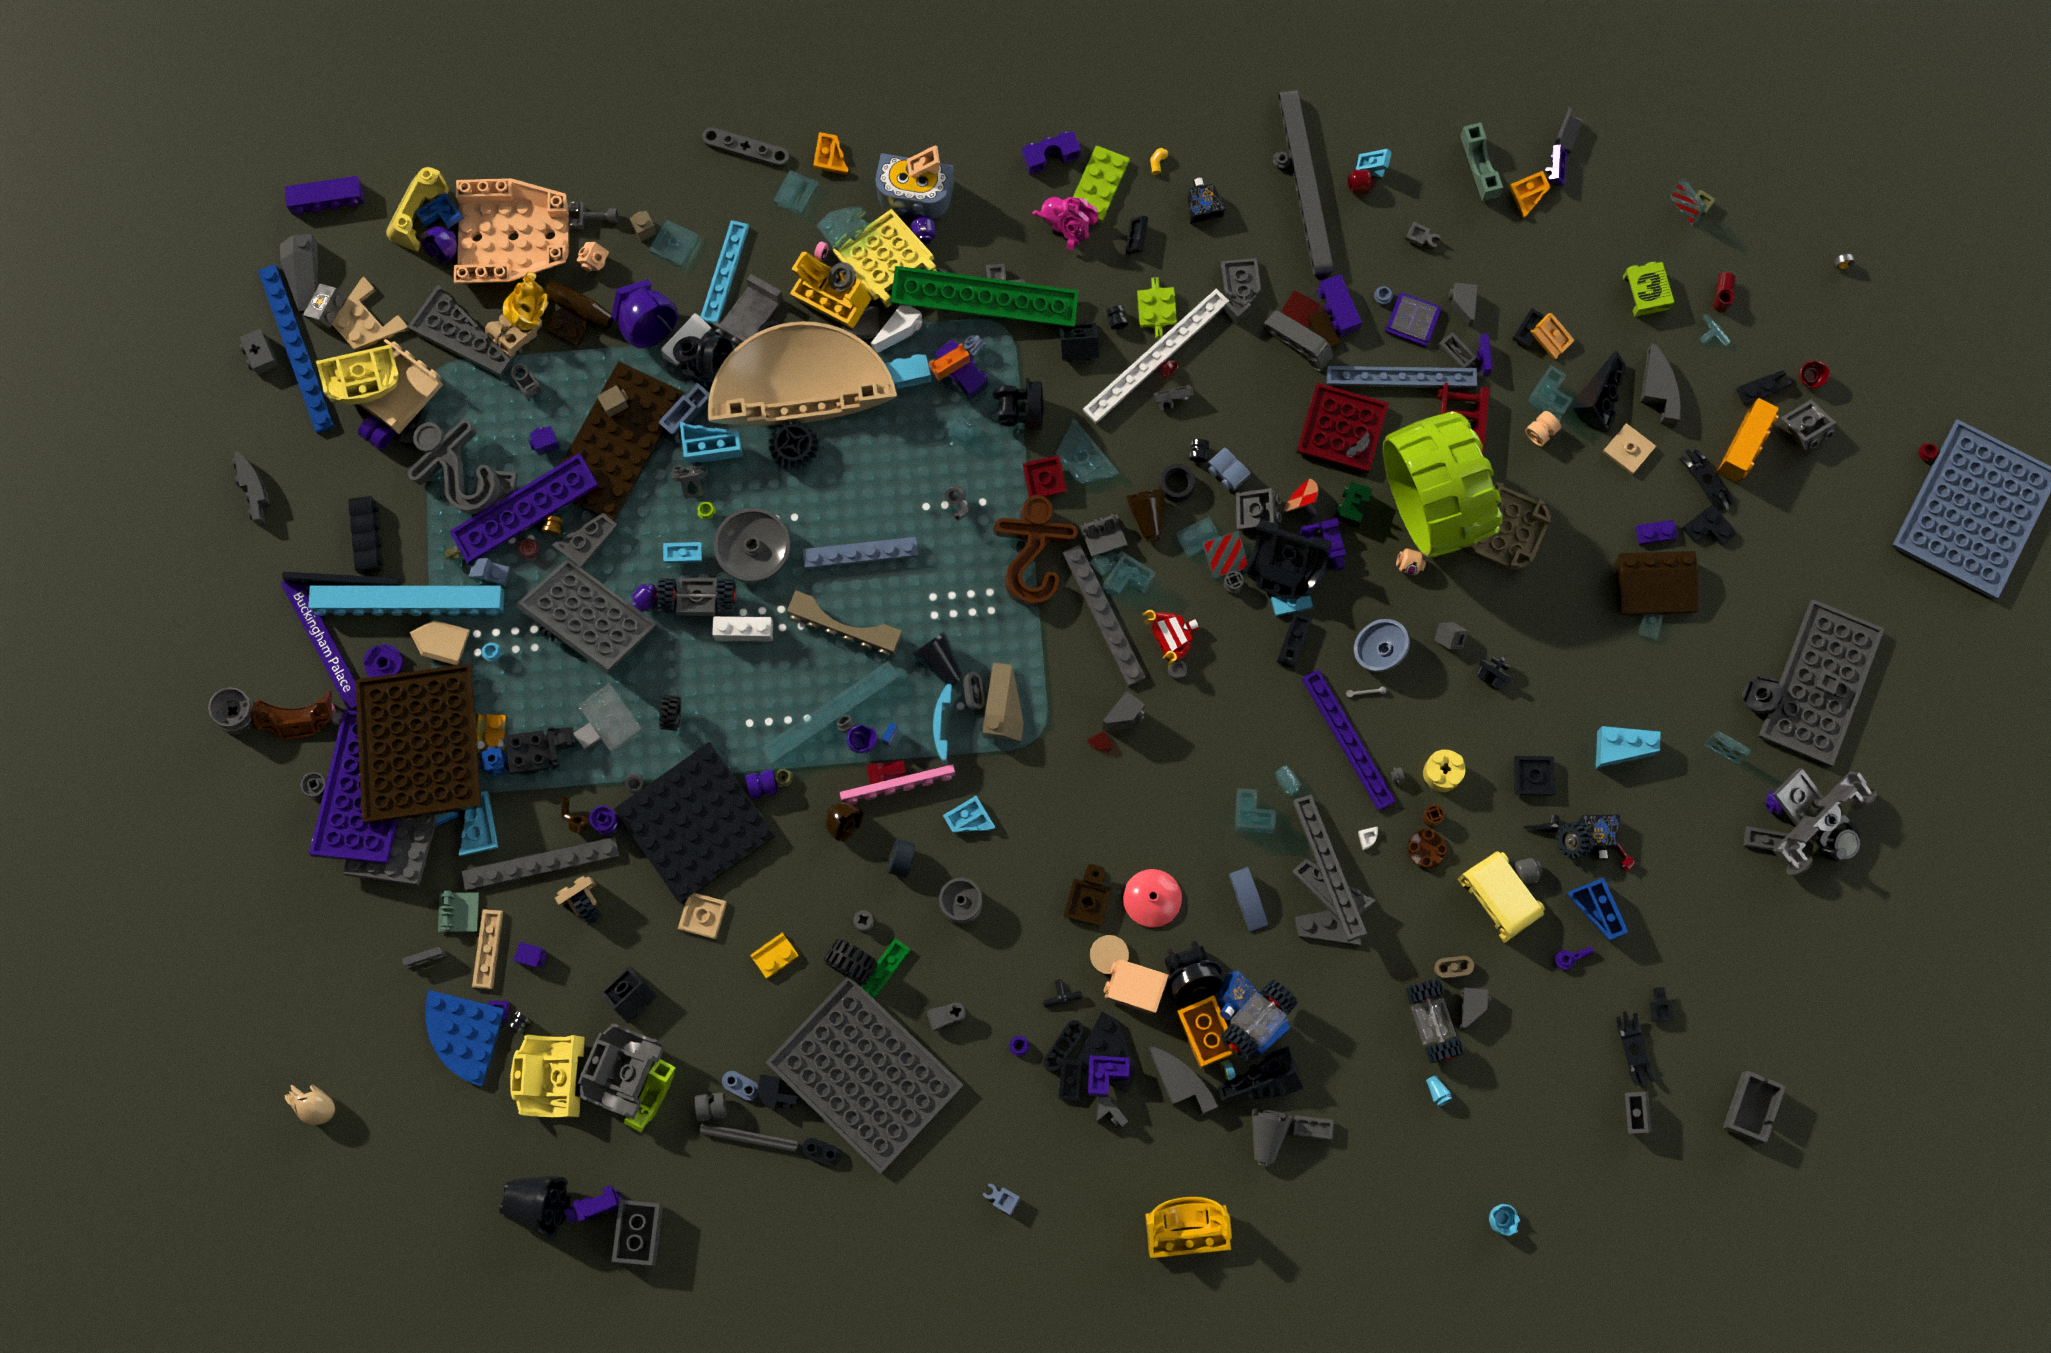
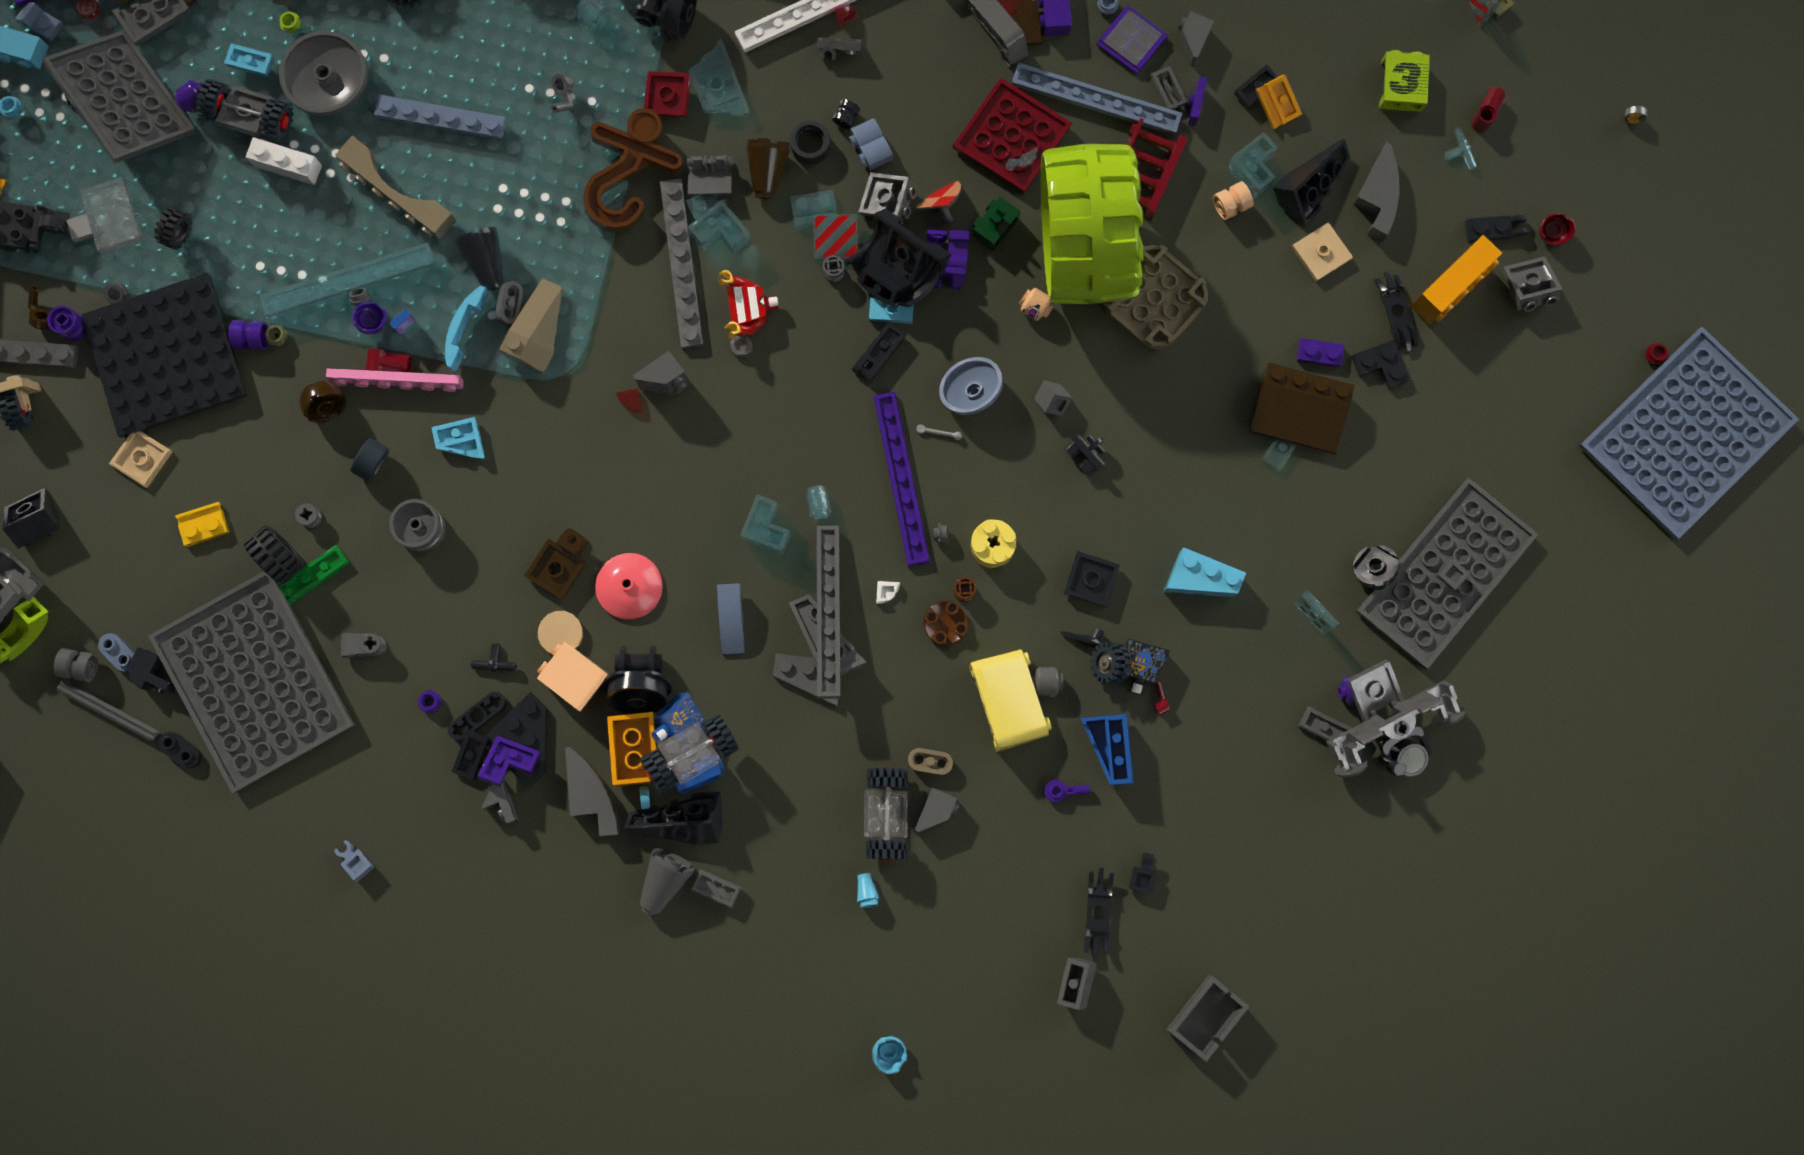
camera: 15 degrees right, 5 degrees up
(1188, 1213) = (542, 937): yellow piece -> none

